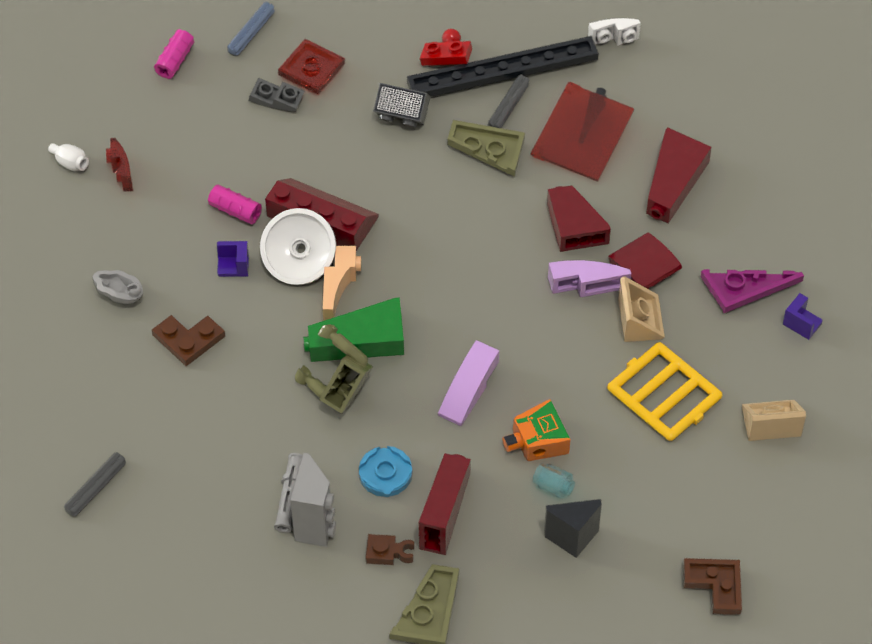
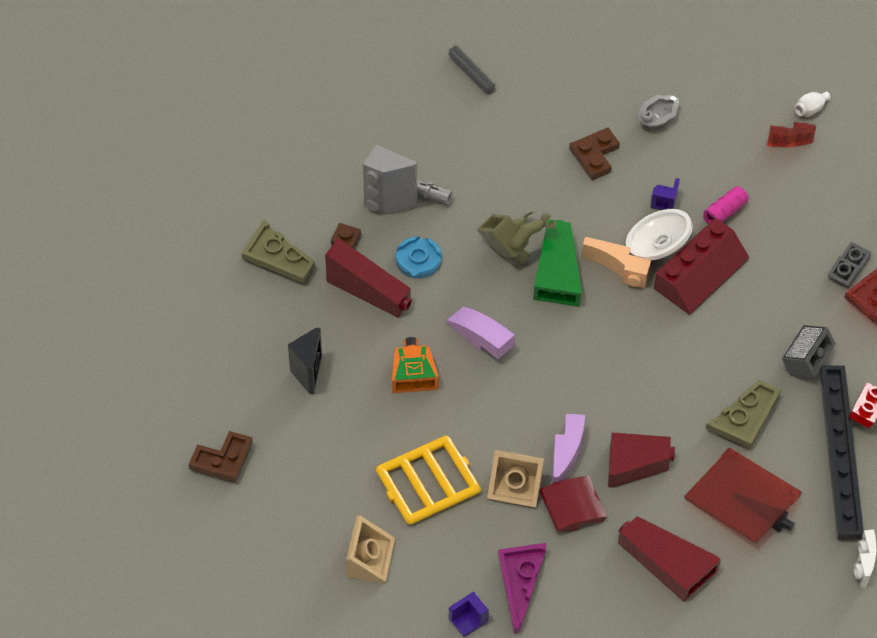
camera: 105 degrees right, 0 degrees up
(509, 102) = (796, 446): dark grey axle -> none
(554, 480) = (363, 367): clear light blue brick -> none

